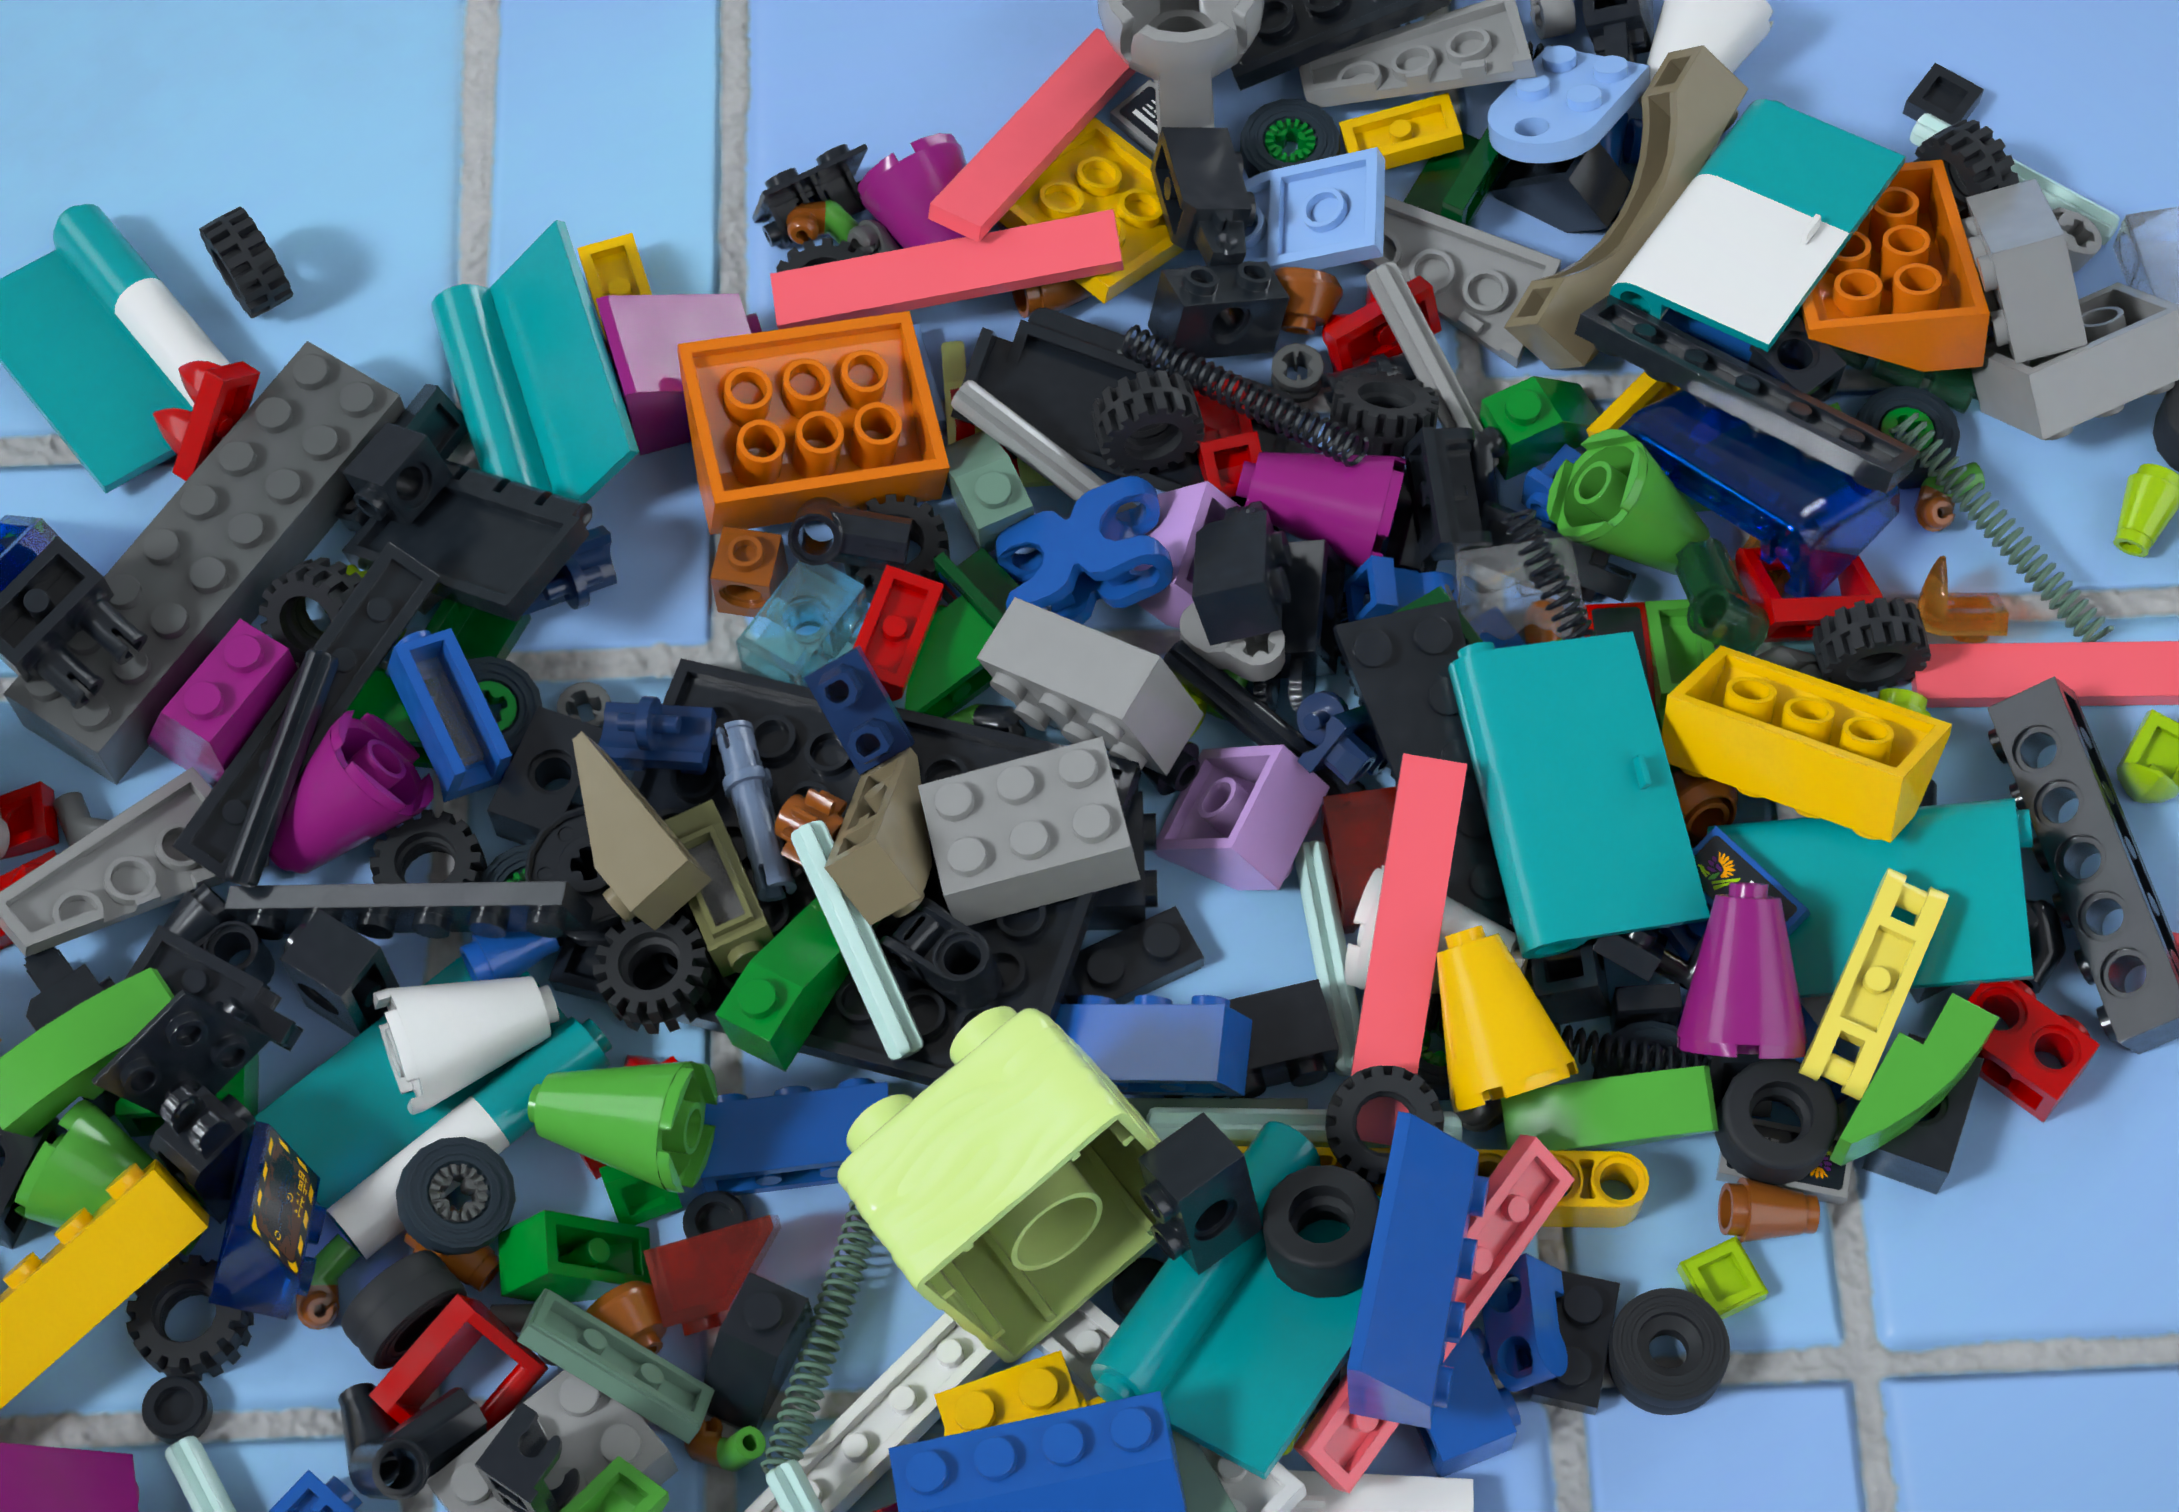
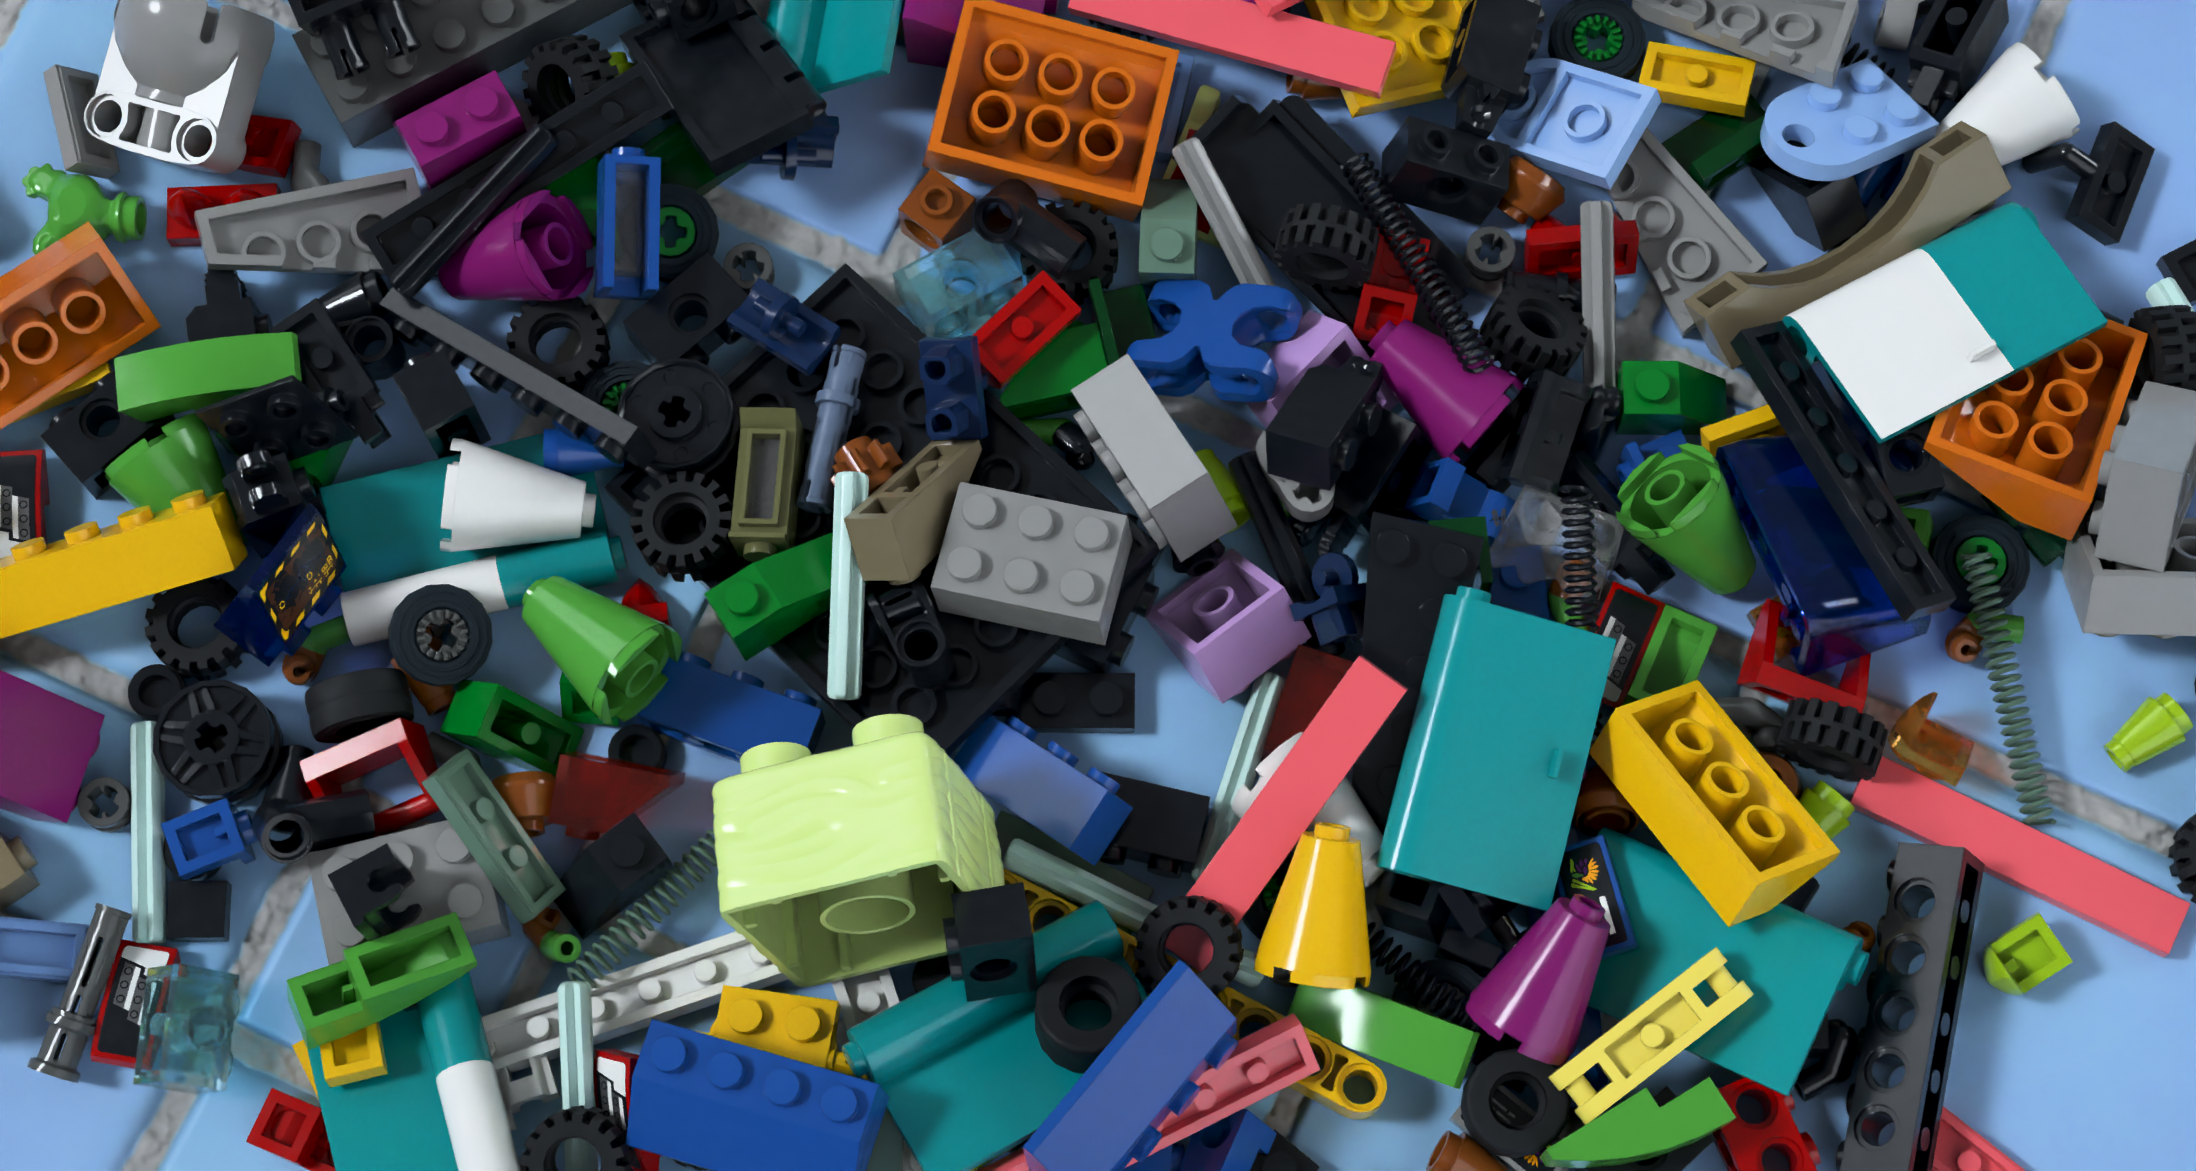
camera: 25 degrees right, 10 degrees up
(271, 1388) = (191, 723): none -> black wheel
(631, 844) = (710, 414): dark tan slope -> none
(1718, 599) = (1720, 642): clear green piece -> none
(1822, 58) = (2107, 180): none -> black plate

